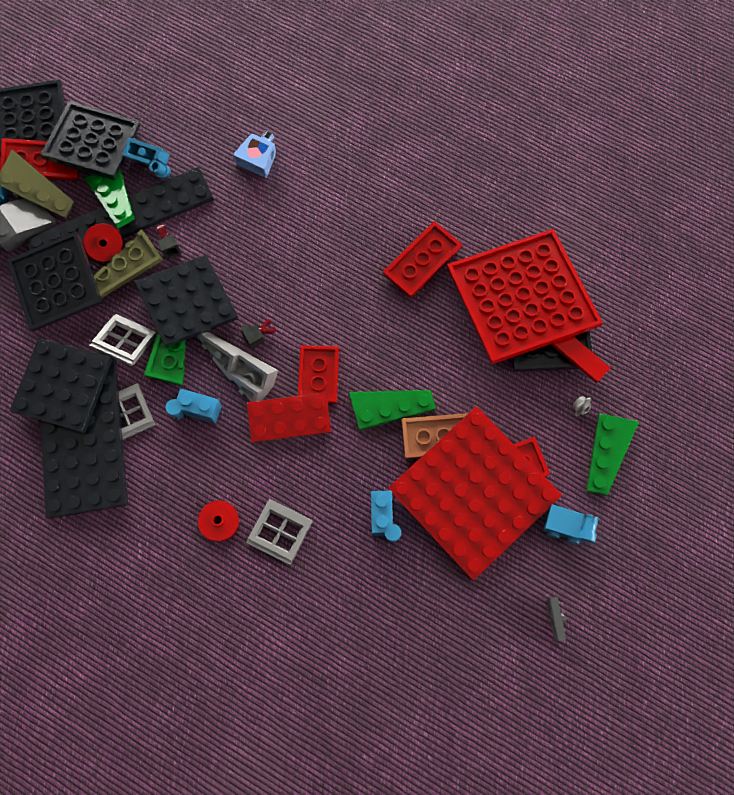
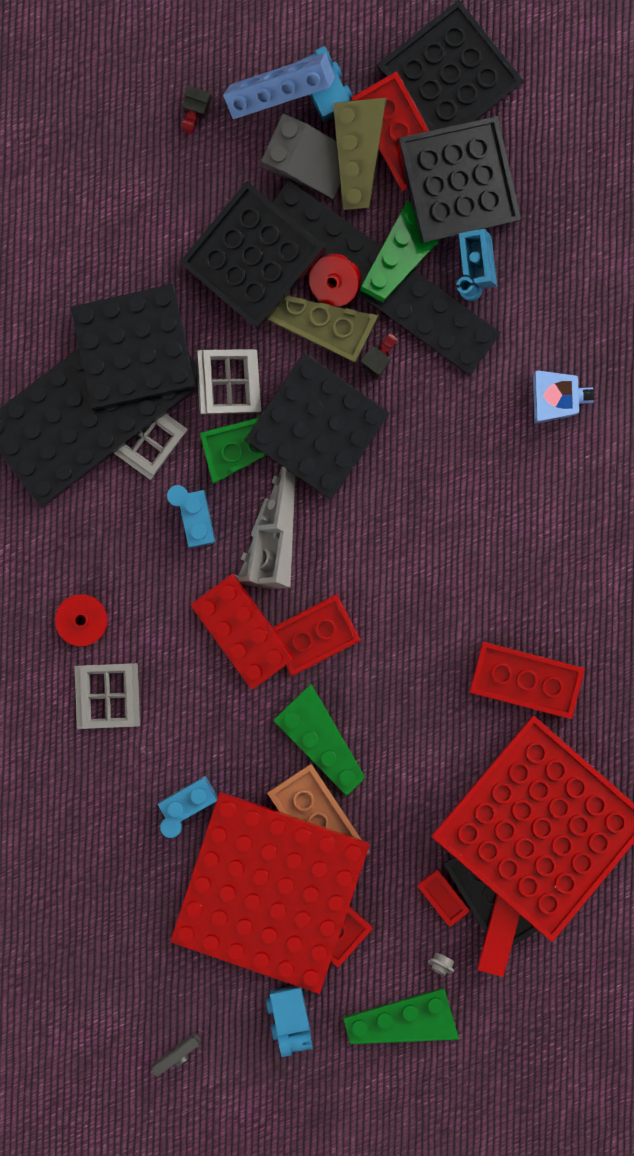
camera: 60 degrees right, 15 degrees up
(254, 335) = (318, 533): pearl dark grey piece -> none
(537, 383) = (443, 897): none -> red tile

